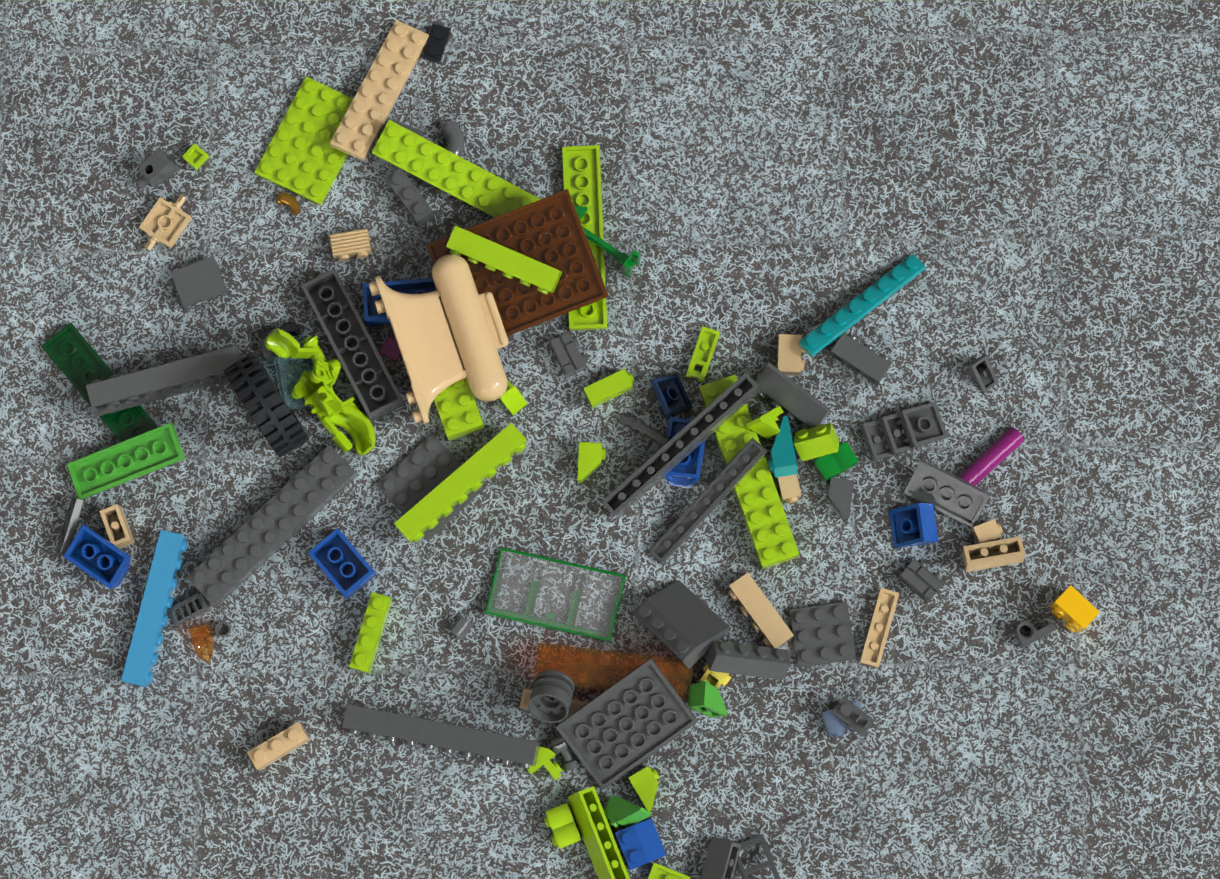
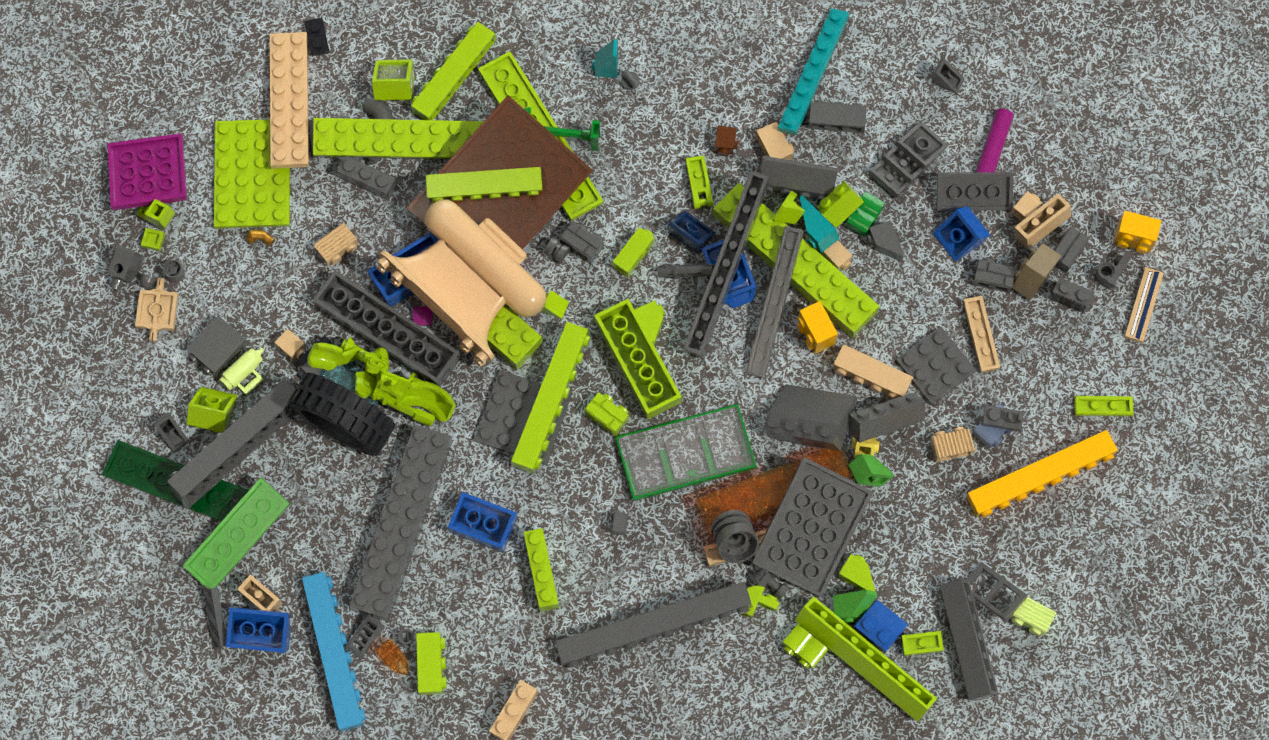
camera: 30 degrees left, 5 degrees down
(119, 339) = (171, 432): none -> dark grey slope
(164, 337) = (211, 409): none -> lime slope
(171, 192) = (147, 281): none -> dark grey hinge
(196, 191) = (171, 267): none -> dark grey wheel
(209, 134) = (157, 214): none -> lime brick
(210, 314) = (241, 369): none -> yellowish green piece
(221, 92) = (147, 171): none -> magenta plate
(231, 664) = (430, 663): none -> lime brick
(262, 315) = (290, 345): none -> tan brick
(480, 119) = (393, 80): none -> lime piece
(504, 523) = (607, 413): none -> lime brick
(538, 139) = (453, 72): none -> lime brick
(542, 350) = (557, 249): none -> dark grey wheel
(557, 488) = (638, 359): none -> lime brick
(679, 200) = (606, 61): none -> teal slope
(693, 227) = (630, 80): none -> dark grey plate
(732, 544) = (817, 327): none -> yellow brick
(747, 328) = (726, 141): none -> reddish brown brick
(795, 714) = (952, 445): none -> tan brick
(861, 784) = (1042, 473): none -> yellow brick
(954, 752) = (1103, 405): none -> lime tile
(960, 596) = (1035, 270): none -> dark tan brick
(982, 635) = (1072, 295): none -> dark grey brick
(1002, 591) = (1069, 247): none -> dark grey brick
(1043, 679) = (1143, 305): none -> tan tile

